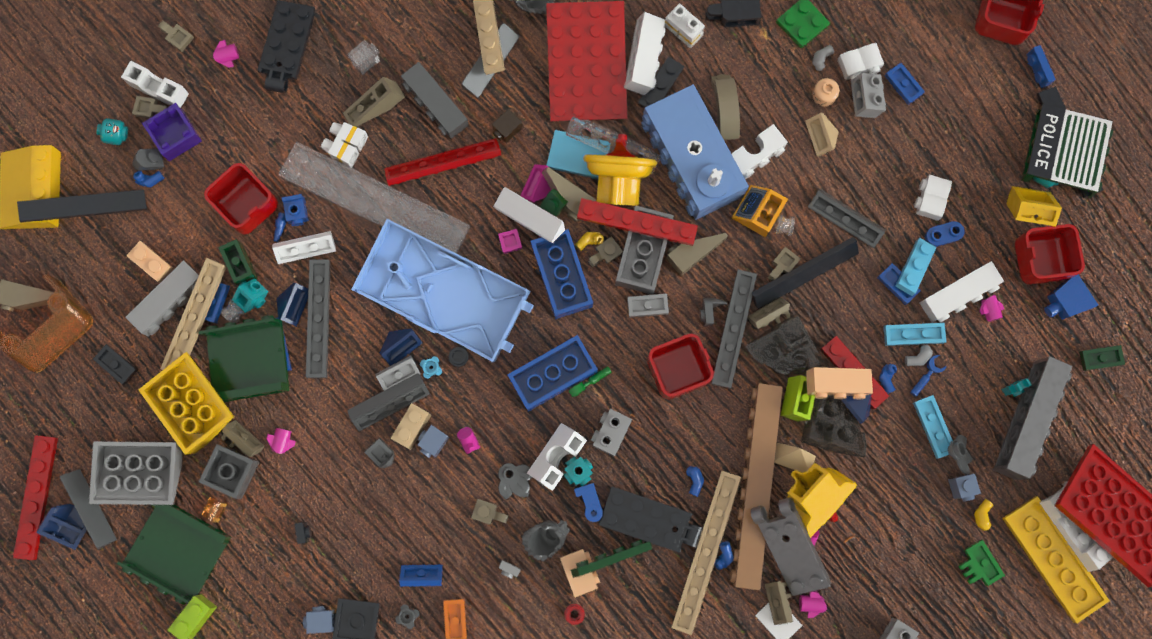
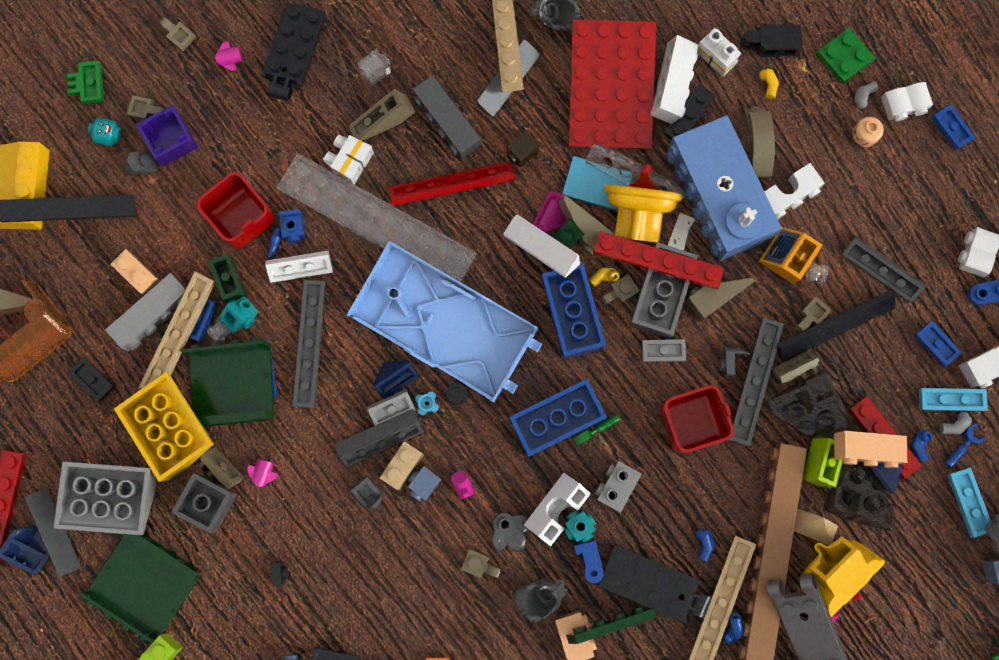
camera: 10 degrees right, 0 degrees up
(92, 86) = (87, 82): none -> green hinge
(146, 180) = (138, 185): blue arm -> none
(150, 84) = (158, 89): white arch -> none
(213, 510) = (186, 542): clear orange slope -> none
(292, 303) = (282, 325): dark blue slope -> none
(421, 575) = (403, 628): blue plate -> none
(509, 569) = (498, 628): light grey plate -> none
(510, 241) = (519, 272): dark pink plate -> none
(659, 194) = (681, 231): none -> white sticker
(733, 45) = (772, 82): none -> yellow arm
(822, 133) = (861, 176): tan slope -> none
(868, 95) = (914, 137): light grey brick -> none
(915, 266) = (957, 326): medium azure plate -> none

